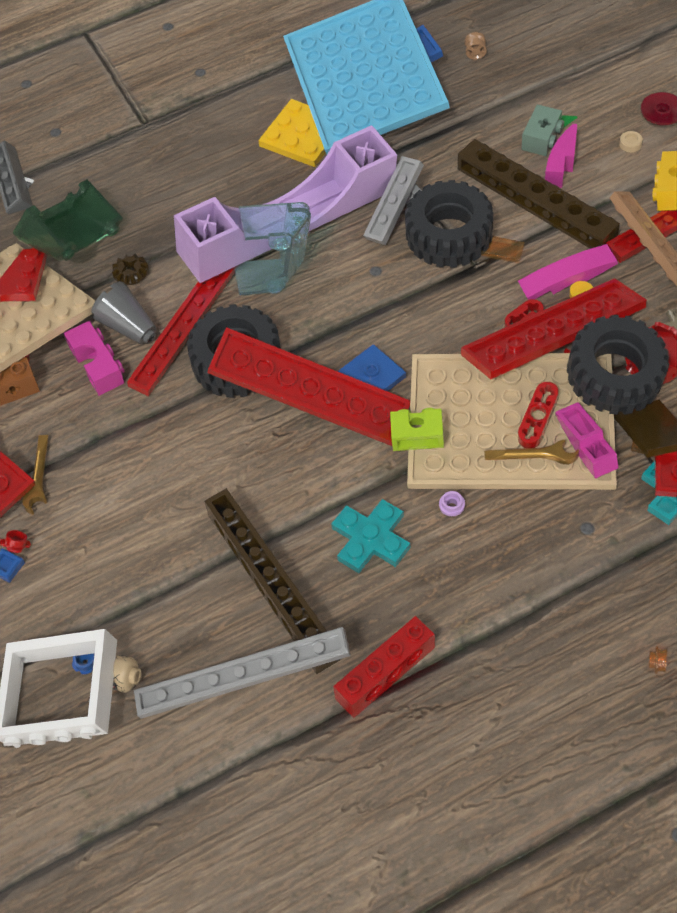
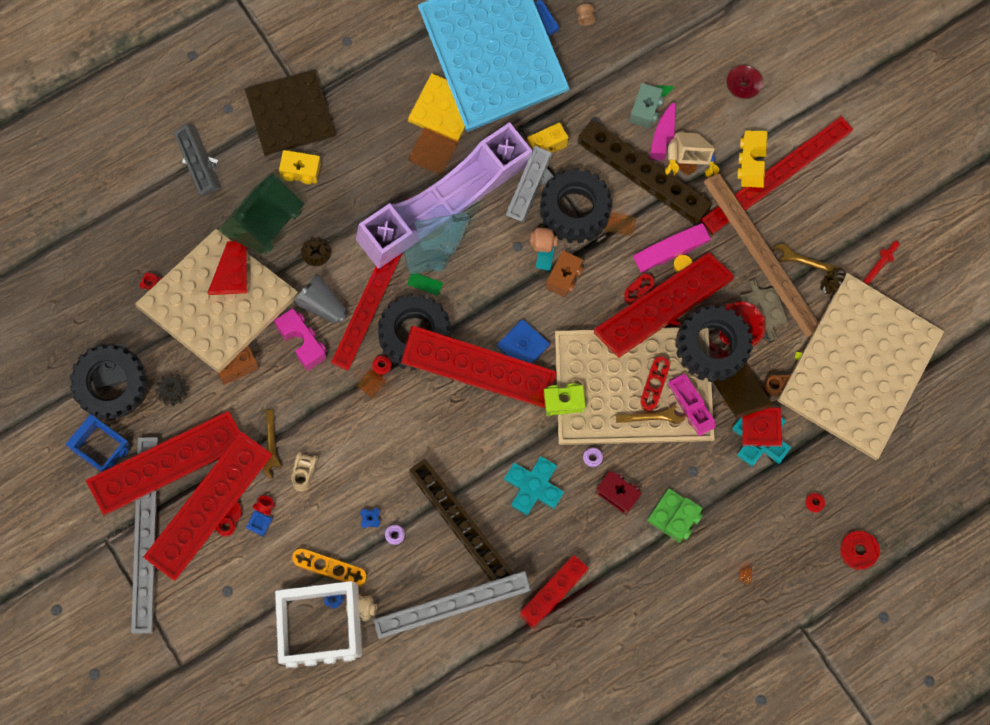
camera: 15 degrees left, 15 degrees up
(73, 502) = (303, 467): none -> tan piece
(88, 619) = (330, 565): none -> light orange beam
(123, 135) = (289, 112): none -> dark brown plate
(125, 183) = (293, 161): none -> yellow brick
(151, 570) = (374, 522): none -> blue plate
(175, 410) = (371, 383): none -> clear orange slope
(175, 580) = (394, 528): none -> lavender plate
(190, 395) = (384, 370): none -> red plate
(268, 308) = (425, 284): none -> green sticker
(283, 172) = (433, 151): none -> clear orange tile
(406, 260) = (543, 240): none -> nougat head
(409, 279) = (544, 260): none -> teal sticker
(430, 155) = (549, 139): none -> yellow brick
(430, 297) = (565, 264): none -> dark orange brick
(483, 546) = (624, 501): none -> dark red brick
(561, 580) = (675, 516): none -> bright green plate
(591, 190) = (687, 171): none -> clear orange plate
(595, 169) = (691, 149): none -> tan torso
(630, 141) = (718, 113): tan tile -> none

